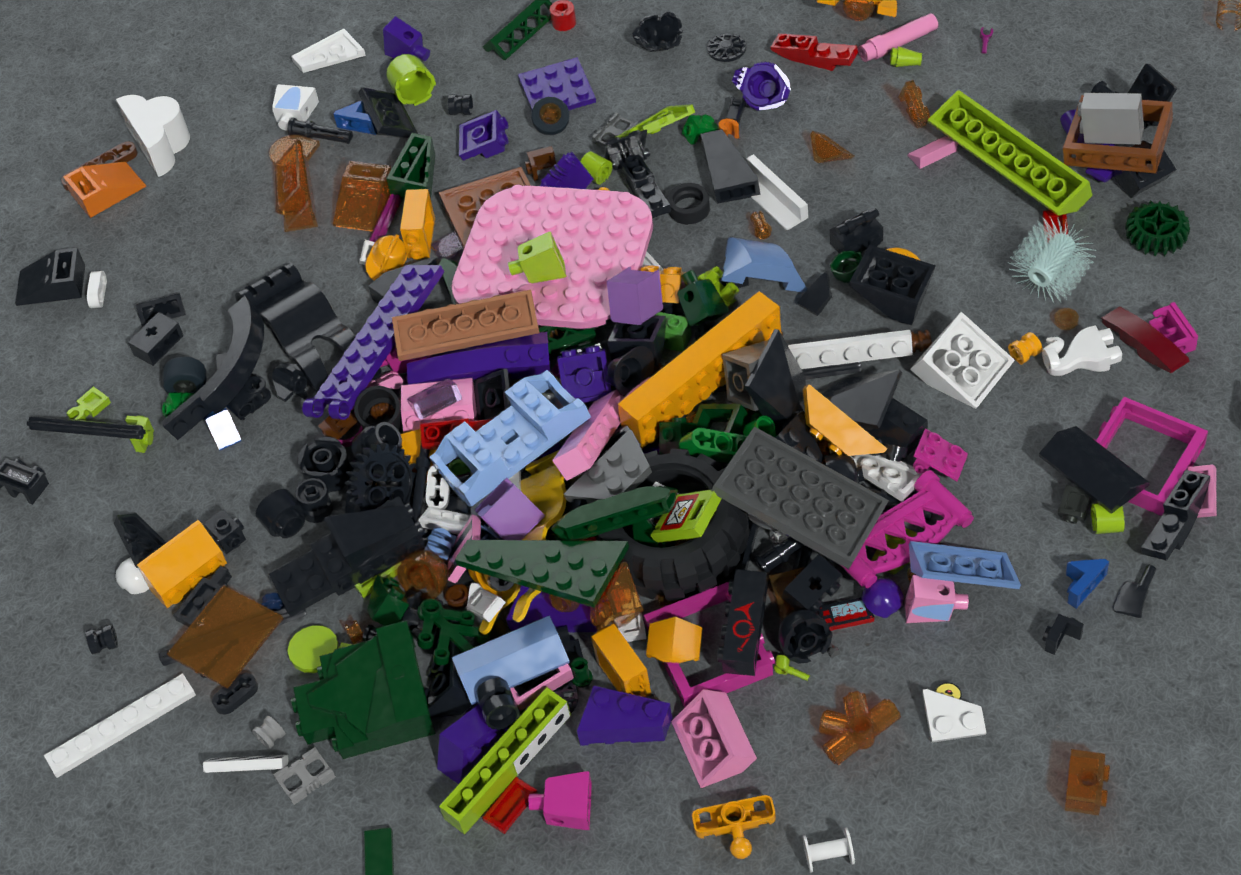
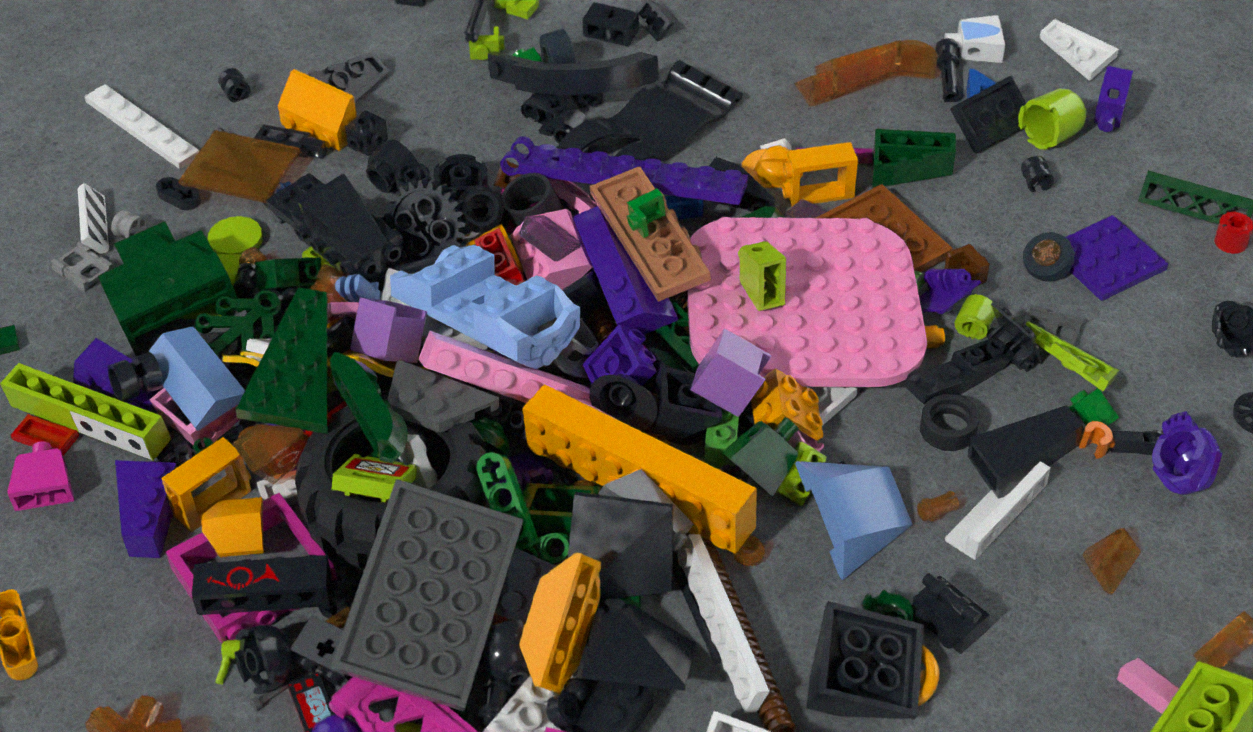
camera: 70 degrees right, 5 degrees down
(222, 429) = (504, 101): slope -> none
(362, 195) = (855, 121): clear orange slope -> none
(459, 322) = (645, 210): none -> green bracket
(483, 135) = (991, 205): dark purple plate -> none
(672, 432) = (545, 462): dark green bracket -> none
(713, 738) = (123, 599): bright pink slope -> none
(817, 295) = (825, 587): black slope -> none

